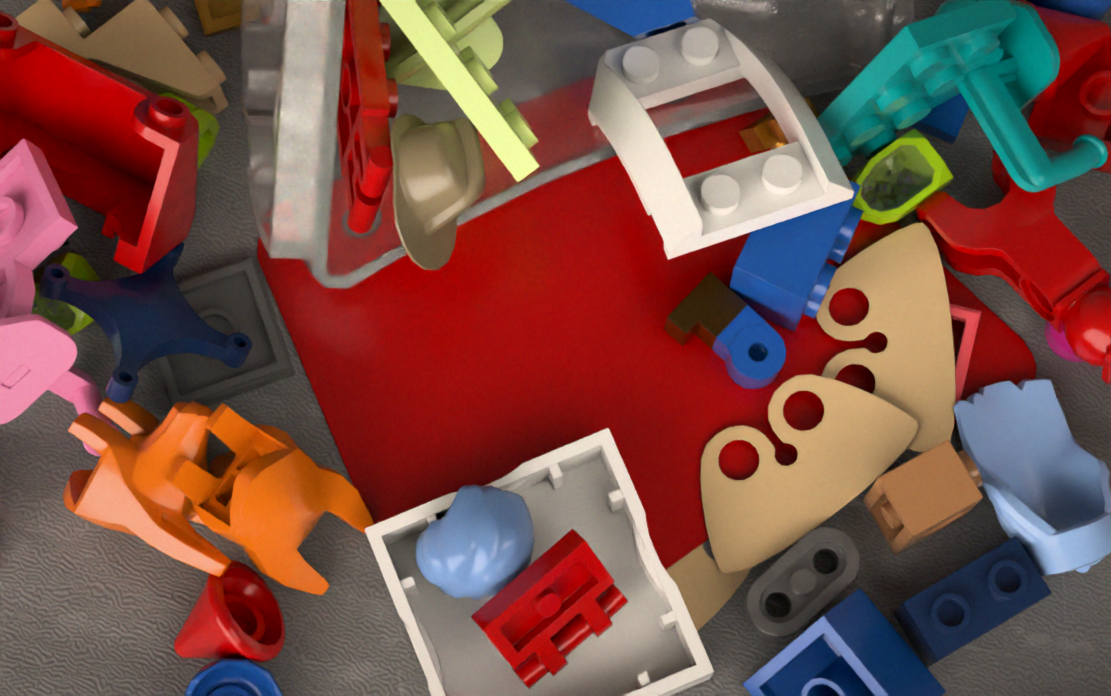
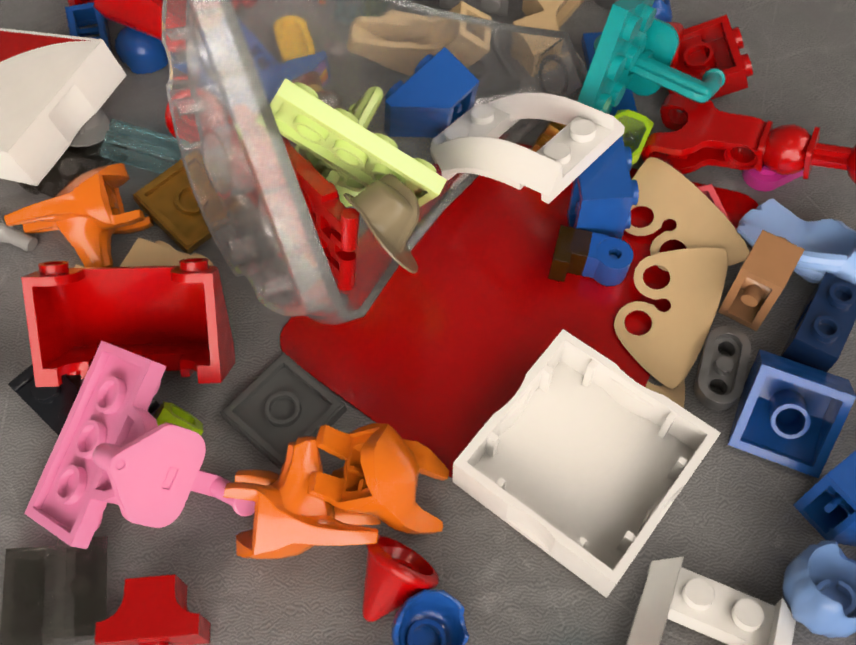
camera: 30 degrees left, 15 degrees down
(143, 319) = (235, 413): dark blue piece -> none
(477, 543) = (530, 436): medium blue hair -> none
(551, 609) = (597, 451): red plate -> none

